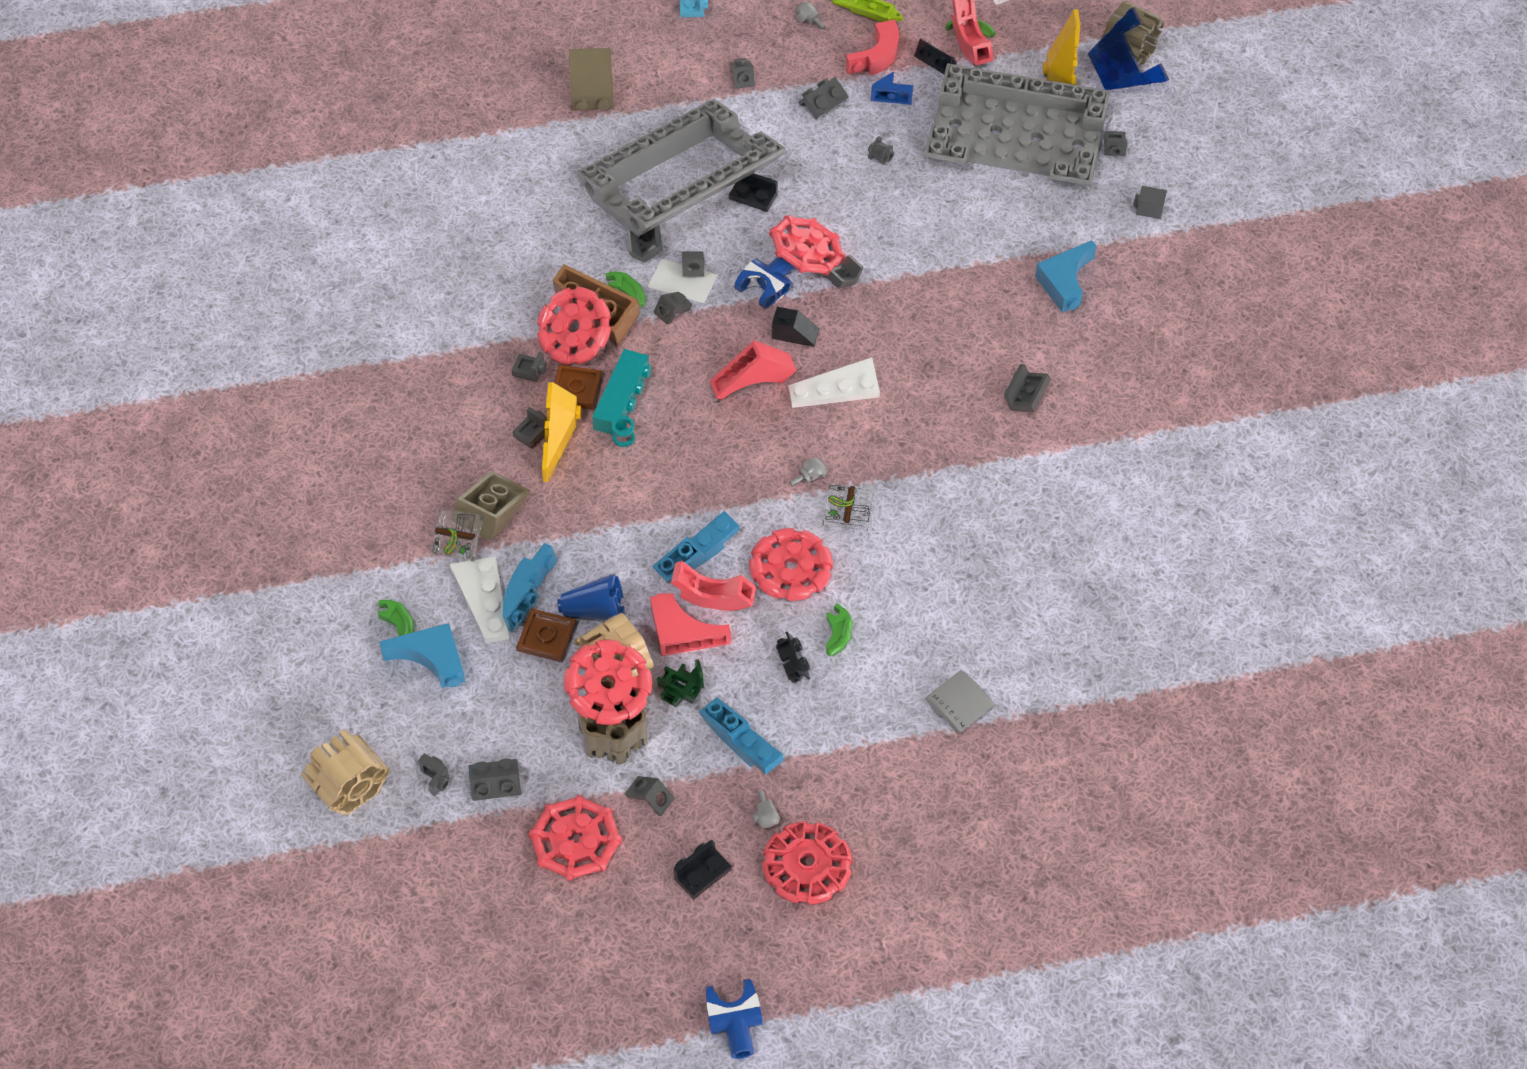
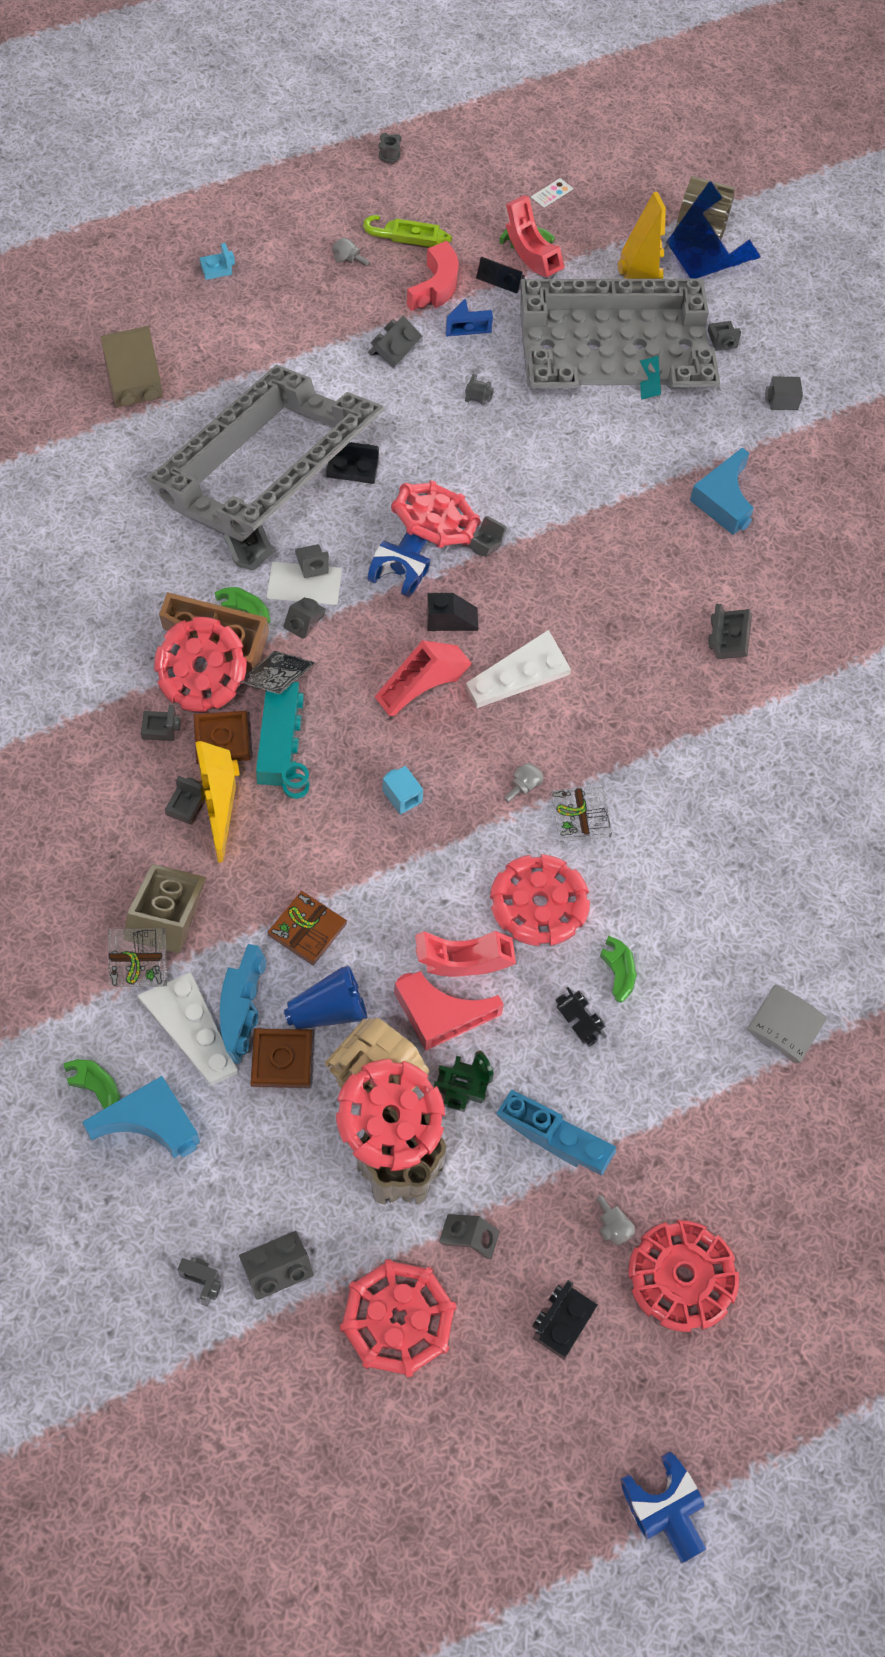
camera: 20 degrees left, 5 degrees up
(347, 776) = (95, 1319): tan piece -> none
(597, 544) = (307, 927): none -> dark orange tile
(634, 344) = (277, 672): none -> black sticker
(700, 547) = (428, 906): dark azure slope -> none
(707, 456) = (402, 789): none -> medium azure brick
(742, 73) = (297, 329): dark grey bracket -> none
(1033, 176) = (652, 386): none -> teal sticker

